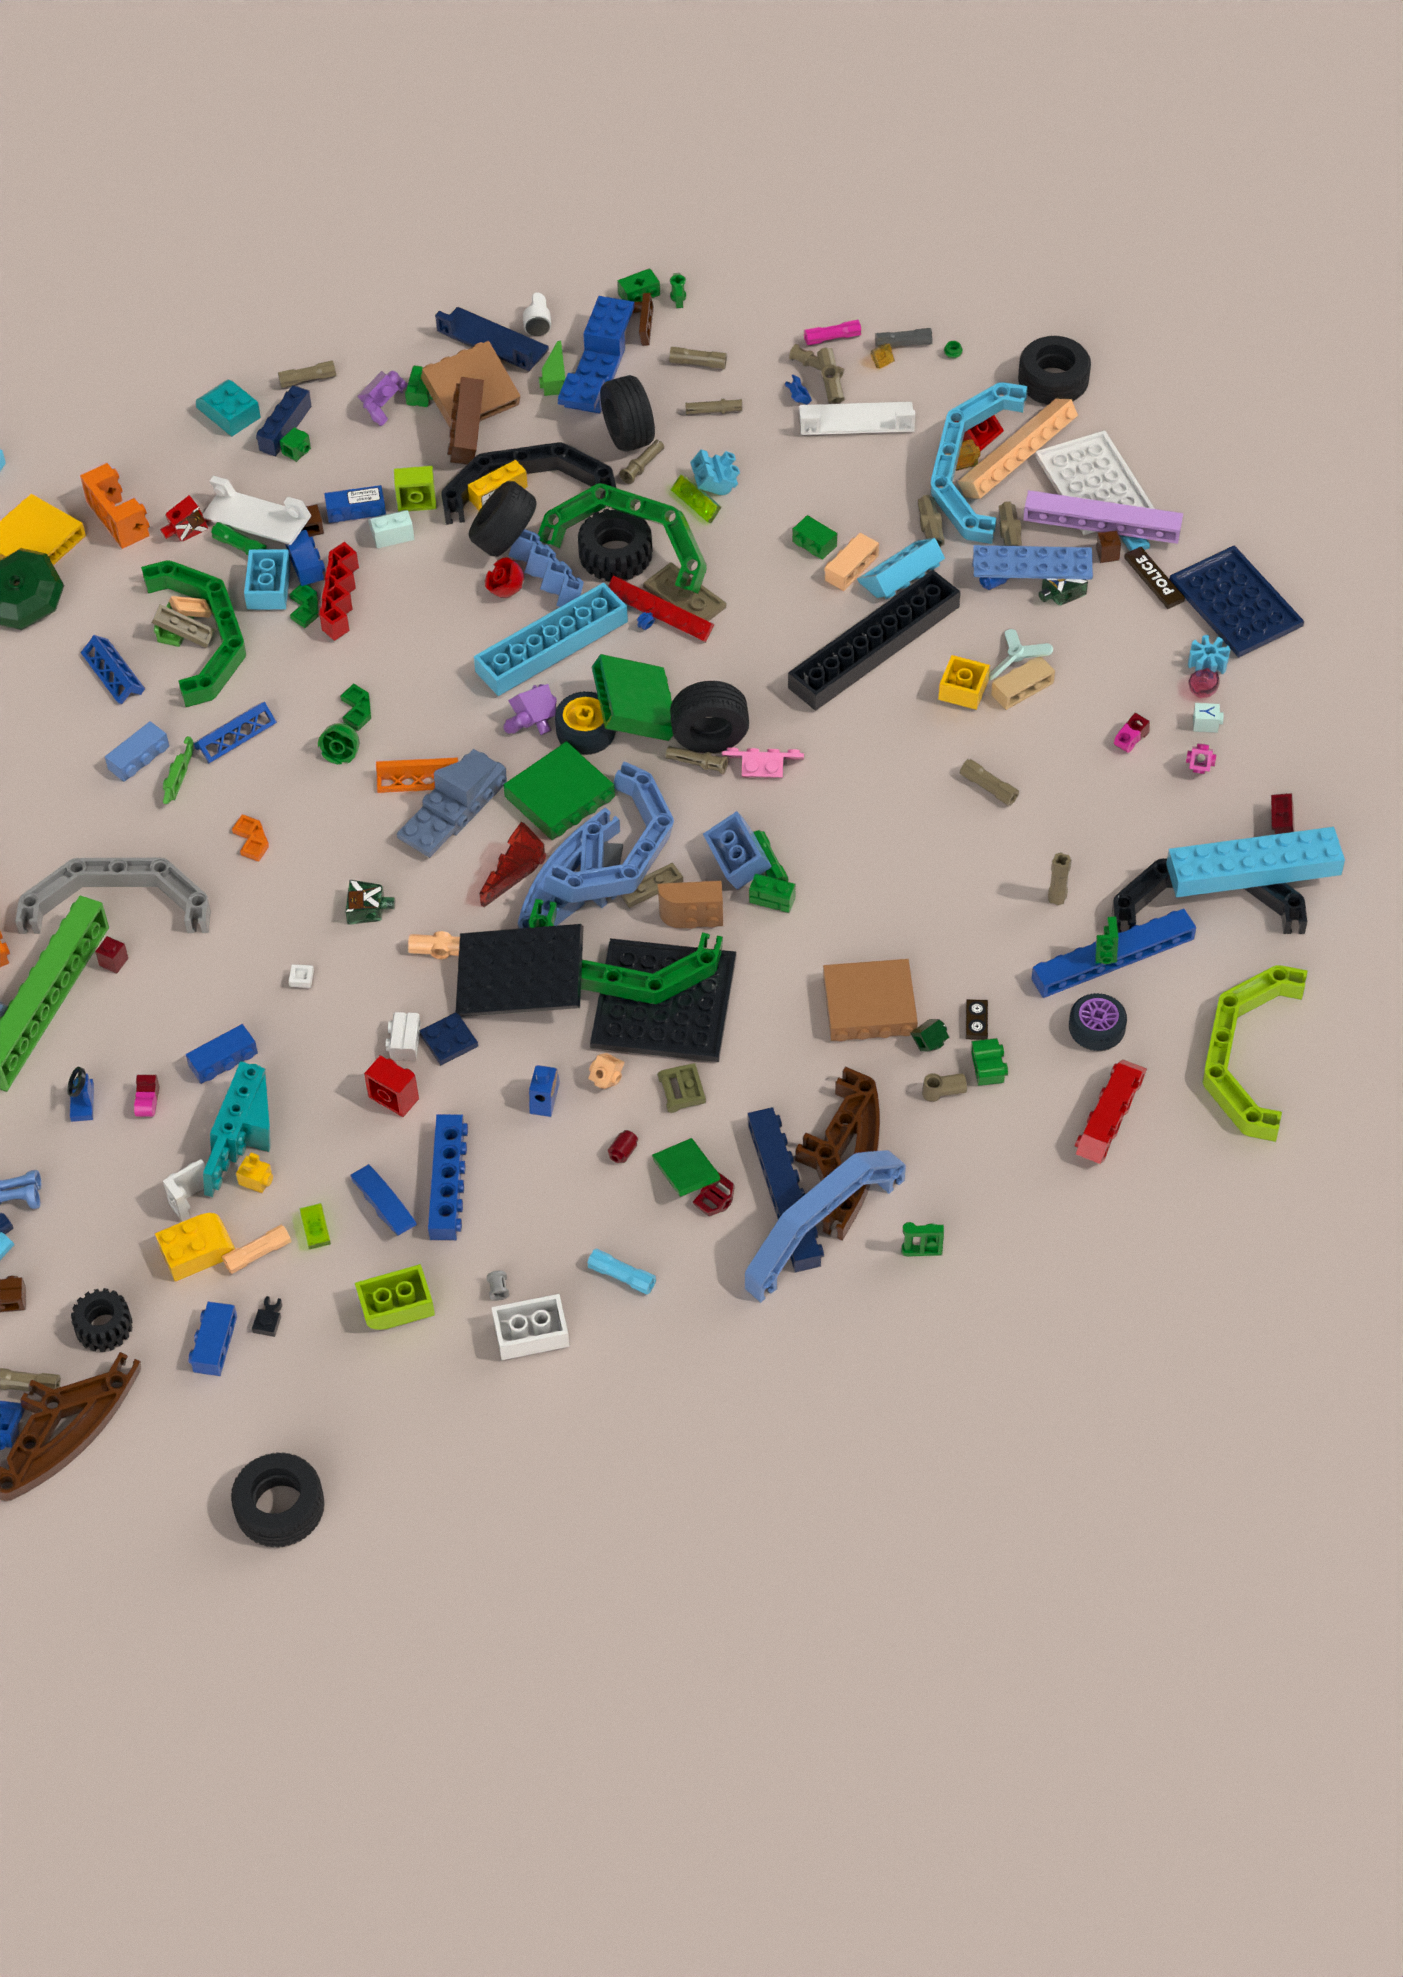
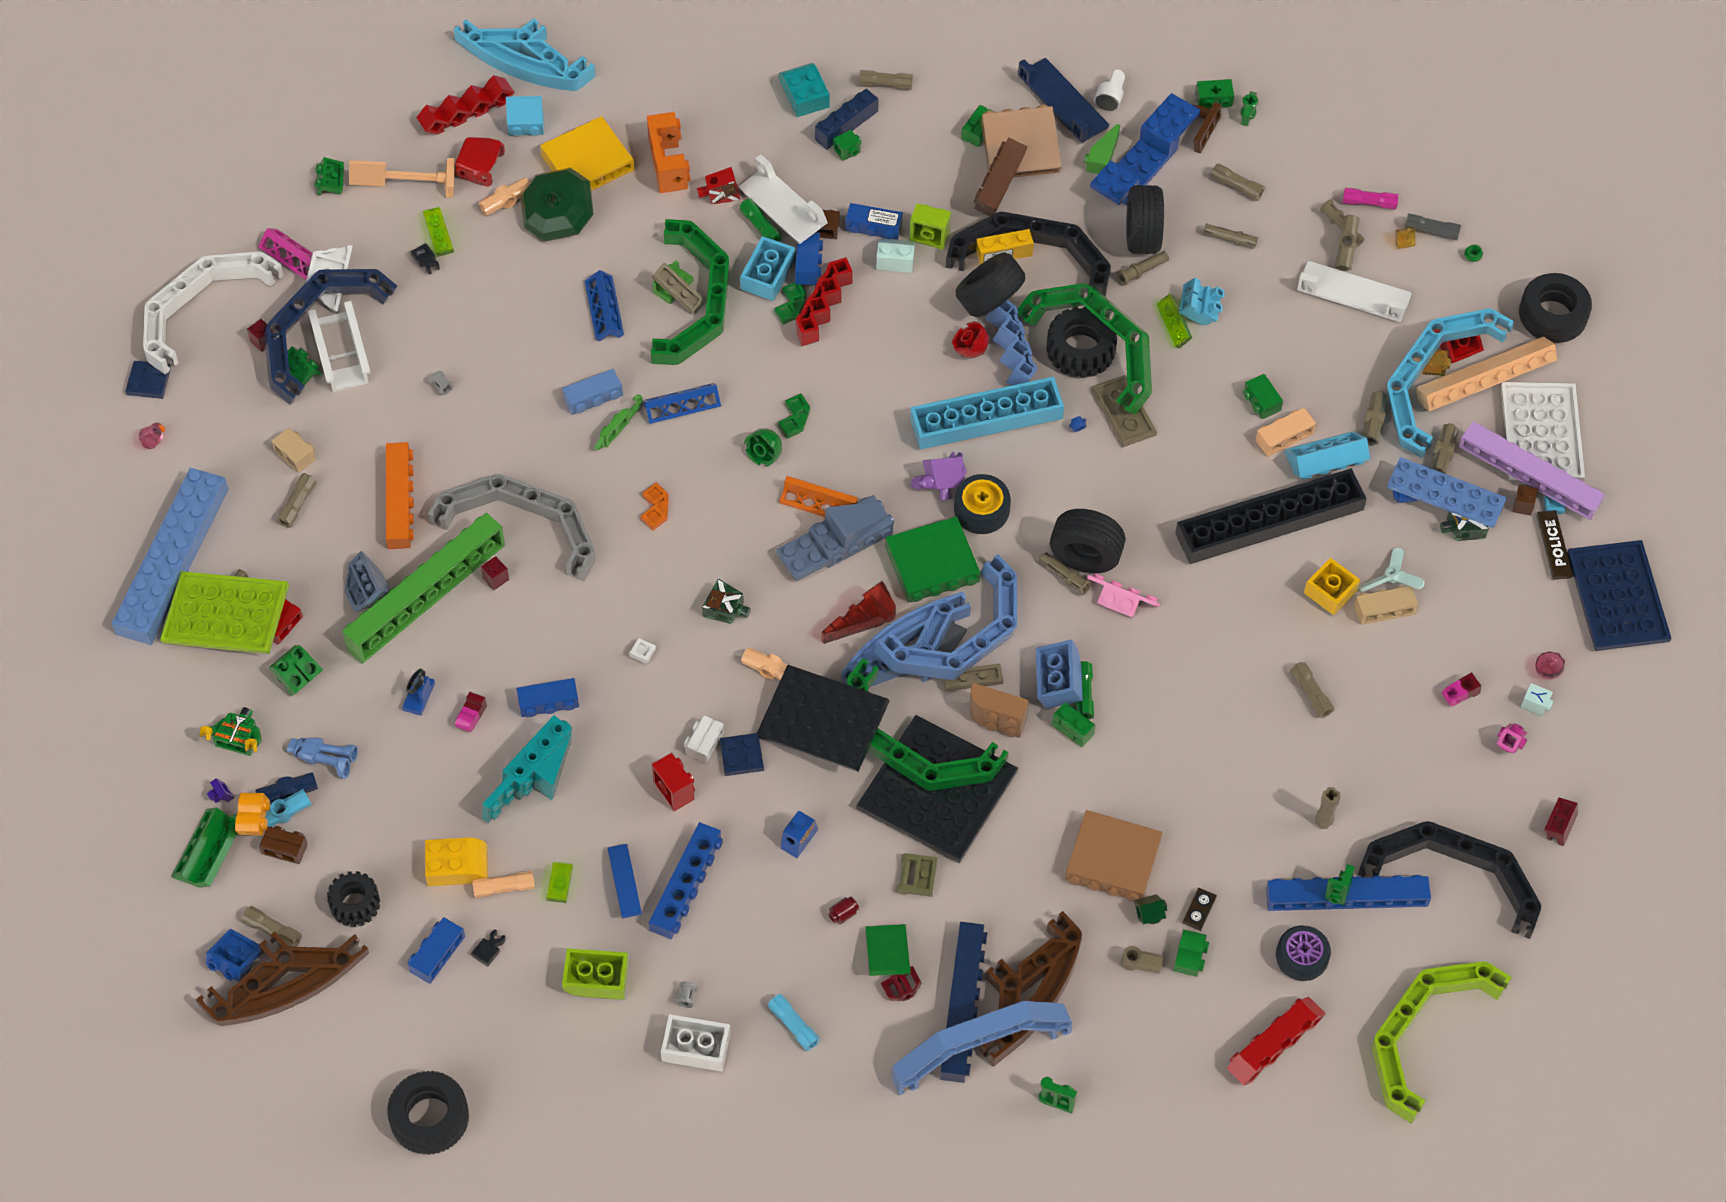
camera: 20 degrees right, 5 degrees up
(183, 1185) = (465, 805): white bracket -> none
(190, 606) = (692, 271): light nougat tile -> none
(254, 1173) = (529, 816): yellow brick -> none
(379, 392) = (938, 121): medium lavender torso -> none
(606, 1071) = (858, 836): light nougat brick -> none
(633, 697) = (1031, 495): green brick -> none
(661, 609) = (1095, 417): red plate -> none
(799, 392) = (1312, 246): blue plate -> none
(1209, 655) = (1567, 640): medium azure gear -> none
(1255, 862) = (1511, 857): medium azure brick -> none

